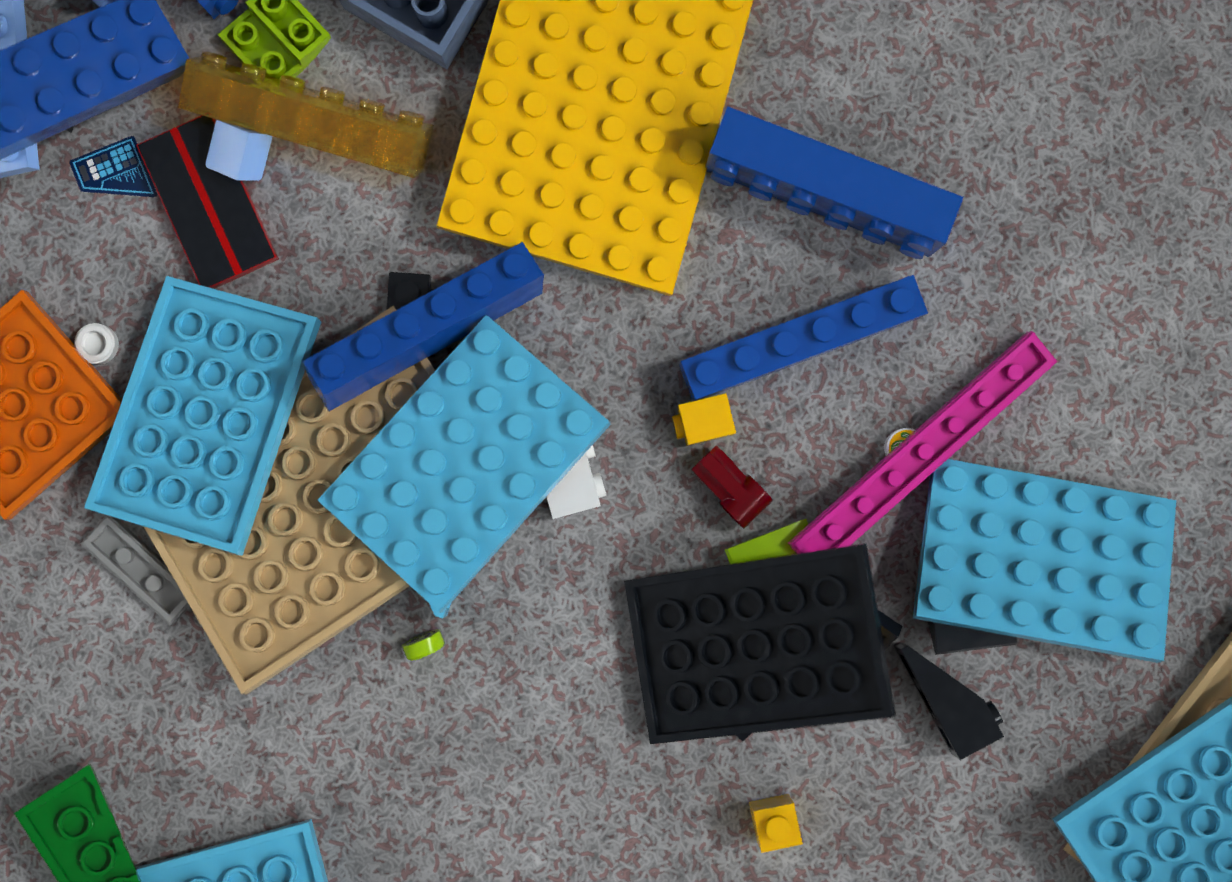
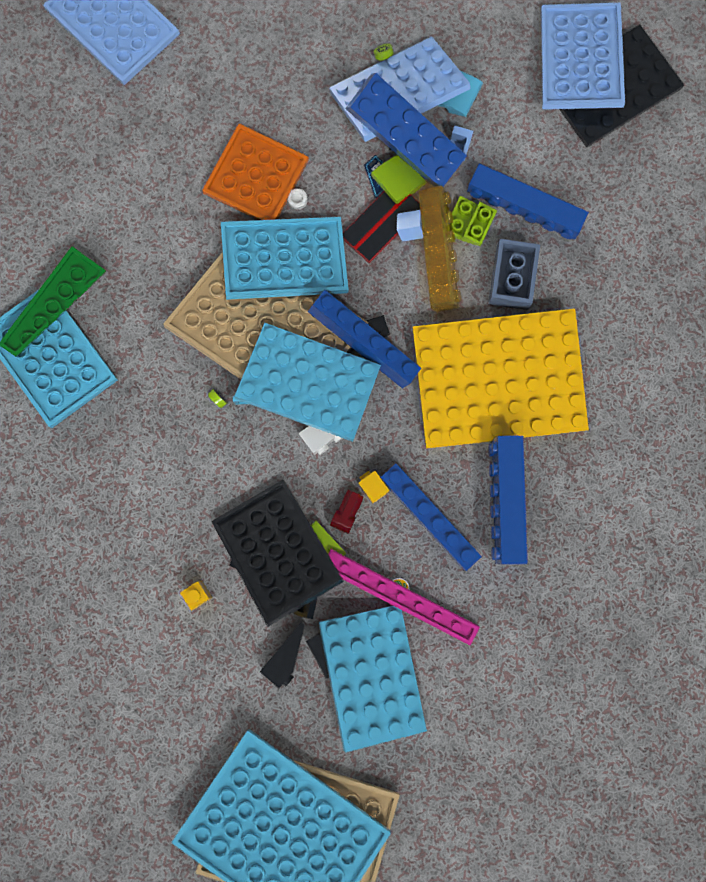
camera: 70 degrees right, 5 degrees down
(136, 137) = (398, 178): none -> lime slope
(137, 568) = (203, 256): light grey tile -> none

